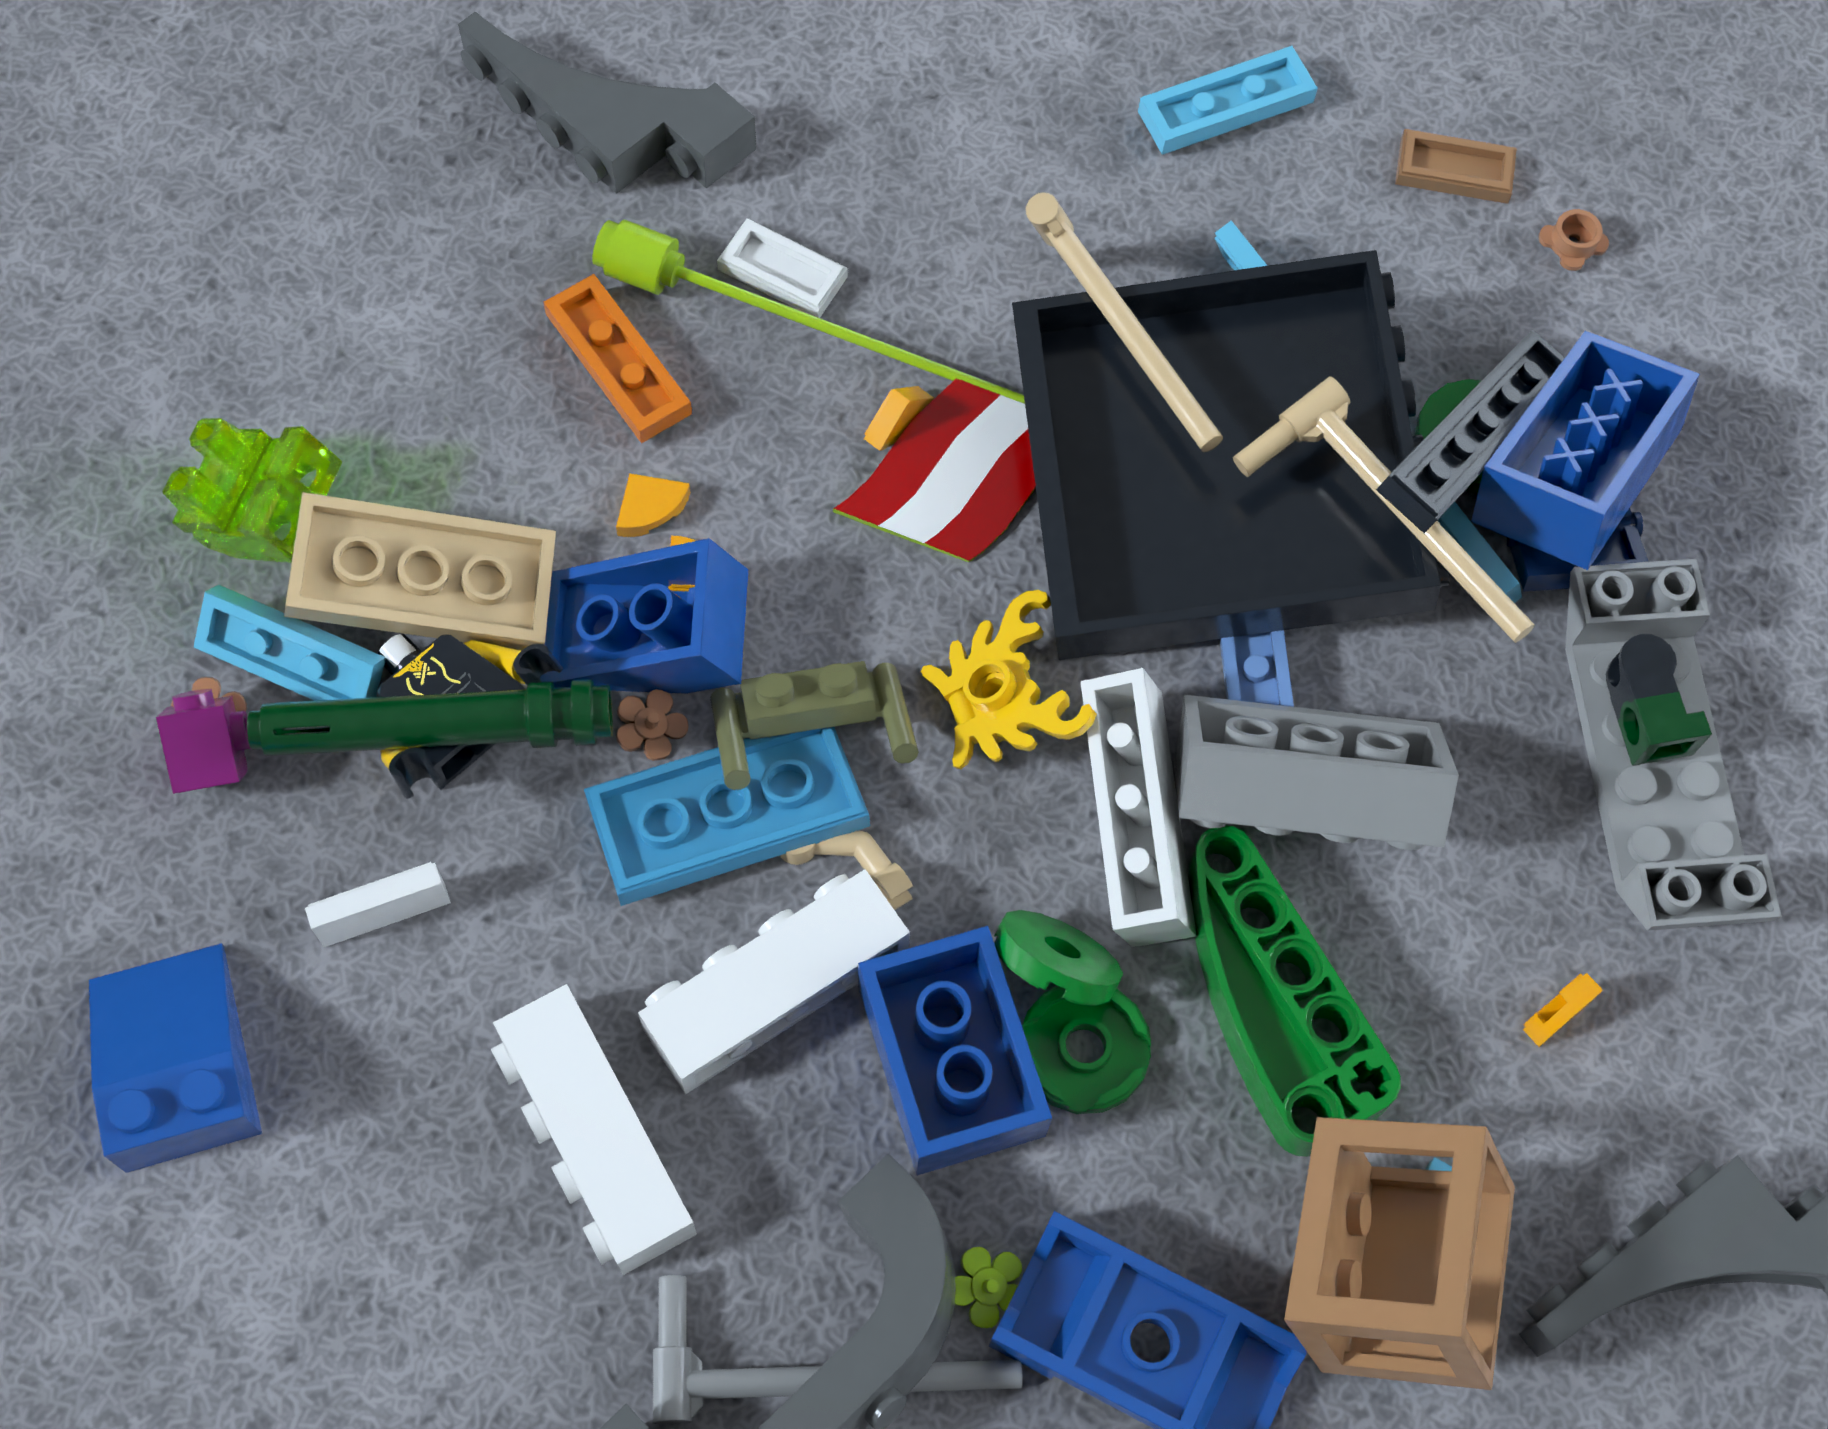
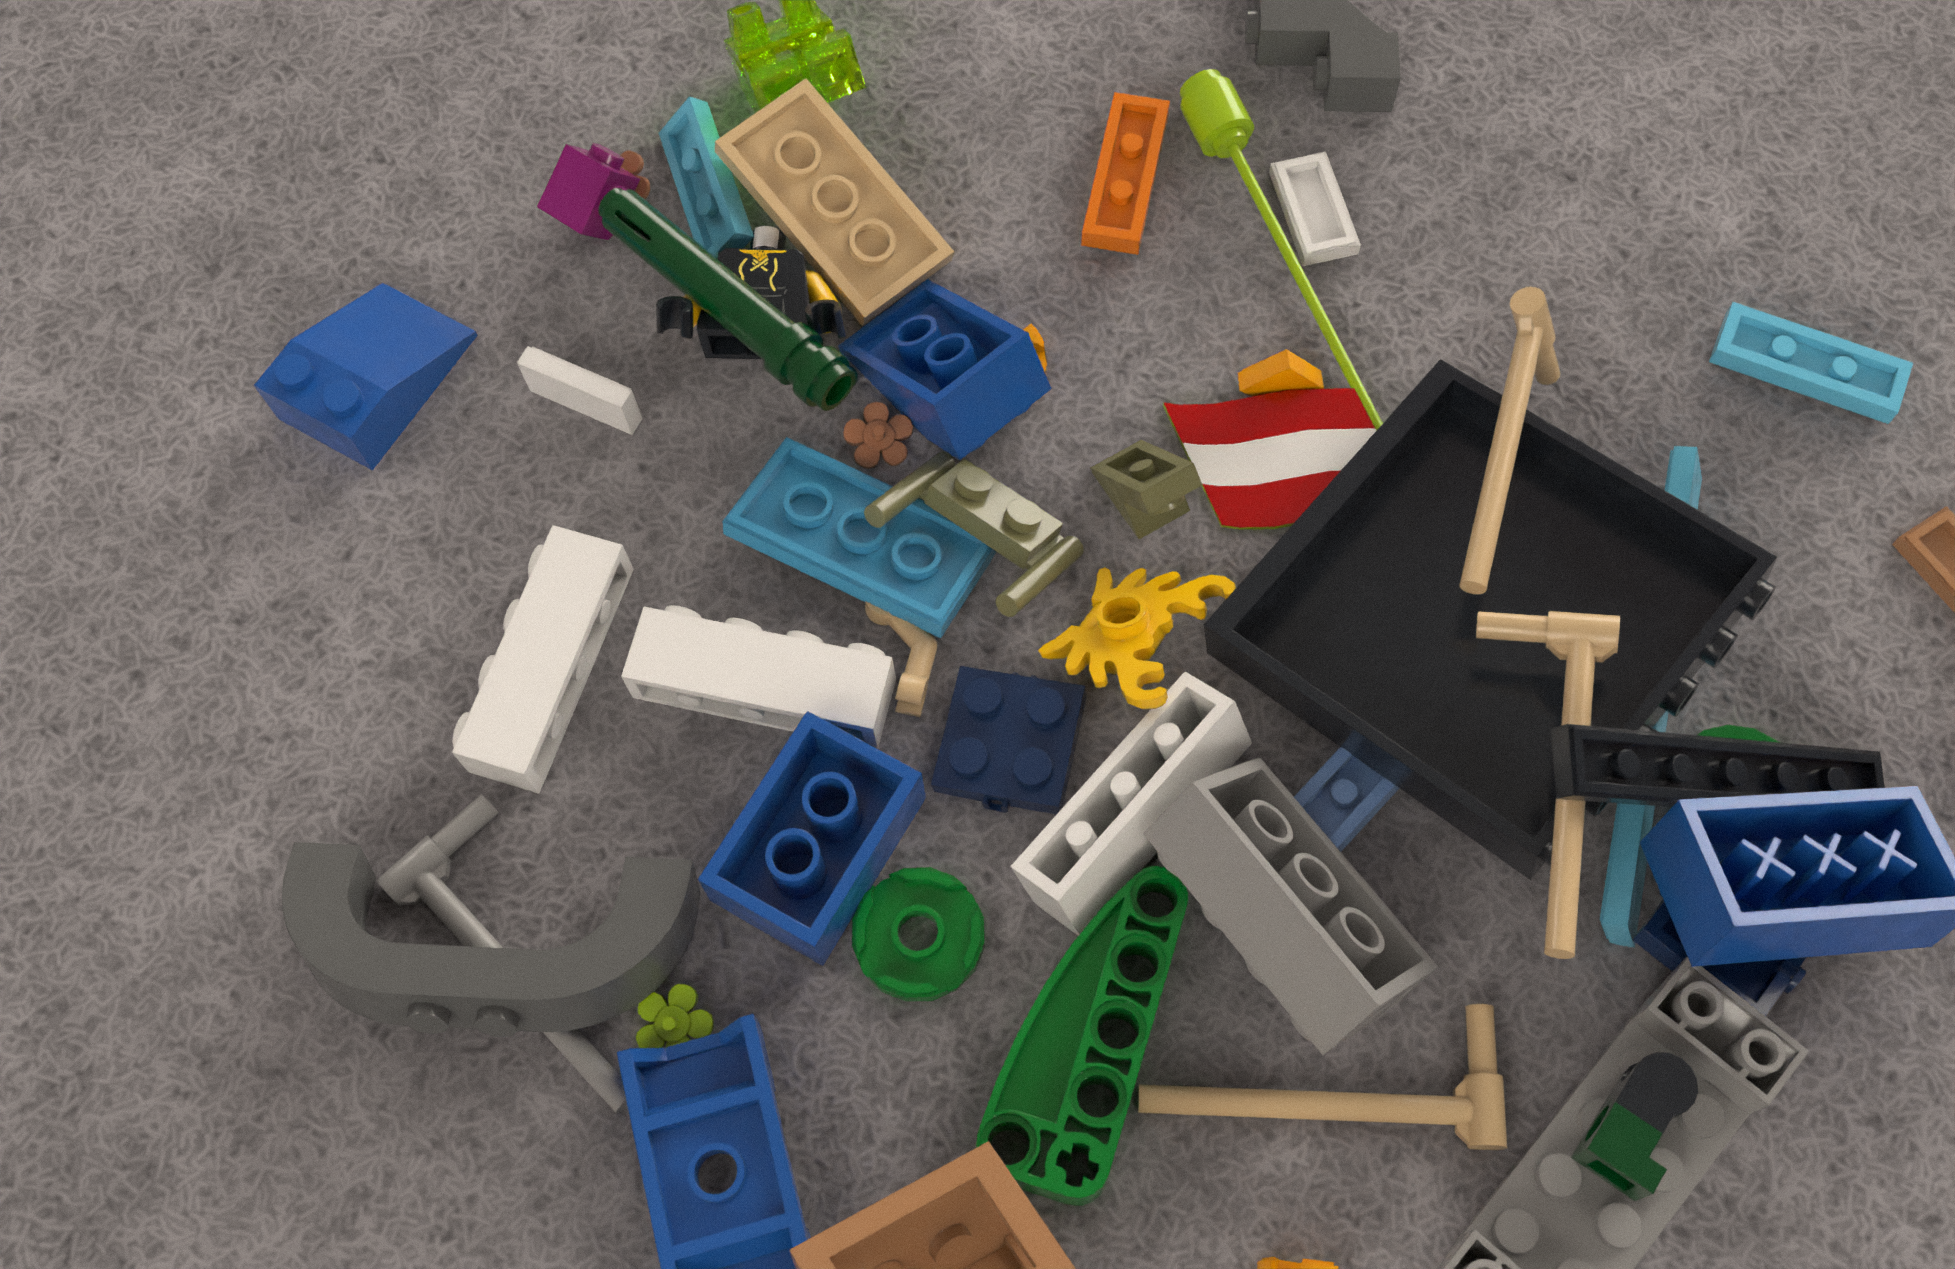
camera: 55 degrees right, 0 degrees up
(649, 504) = (1040, 290): light orange tile -> none
(892, 575) = (1147, 485): none -> olive slope
(997, 849) = (1009, 740): none -> dark blue plate
(1055, 952) = (955, 816): green tile -> none
(1543, 797) = (1474, 1108): none -> tan bar

